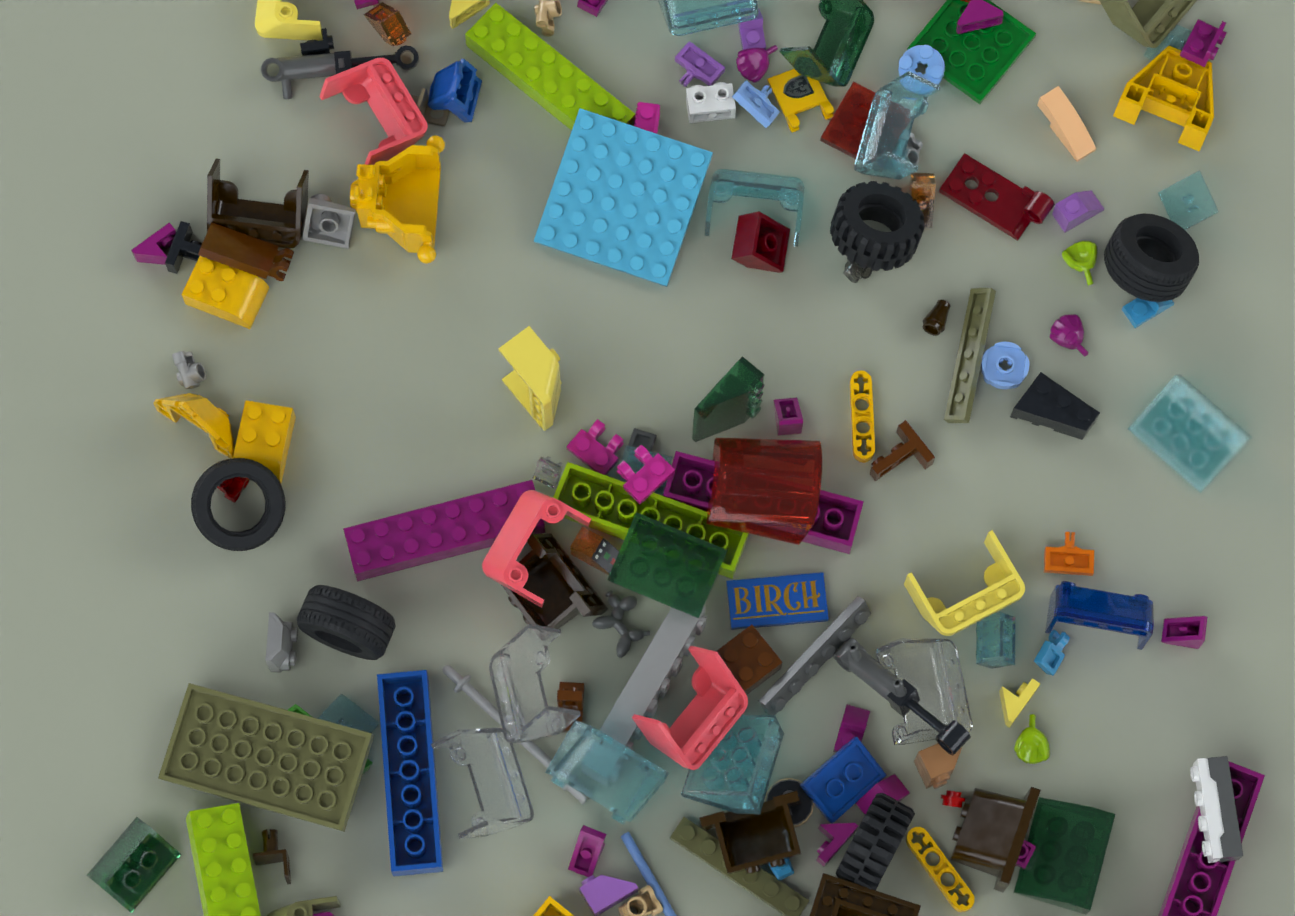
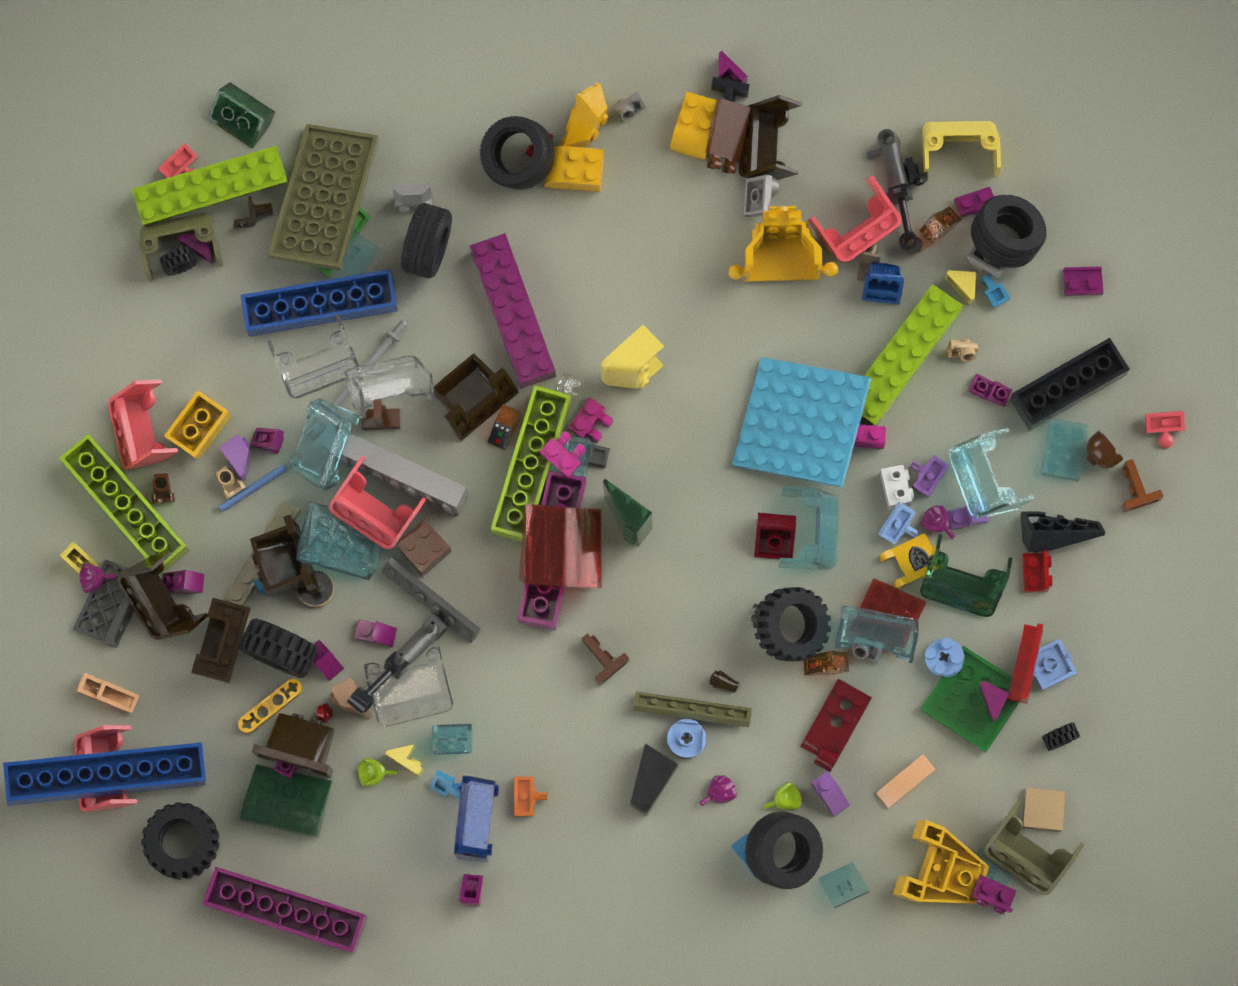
camera: 90 degrees right, 5 degrees up
(501, 561) = (525, 369): coral windscreen -> none
(614, 620) = (450, 445): dark grey piece -> none
(668, 565) = (486, 475): clear green slope -> none
(777, 601) = (476, 569): blue tile -> none
(788, 416) = (629, 567): magenta slope -> none
(839, 835) = (291, 624): magenta slope -> none
(843, 780) = (334, 627): blue tile -> none
(862, 416) = (634, 624): yellow beam -> none
(1002, 590) = (465, 701): light yellow windscreen -> none
(1189, 432) = (641, 892): clear light blue slope -> none
(1217, 809) = (319, 912): piece -> none

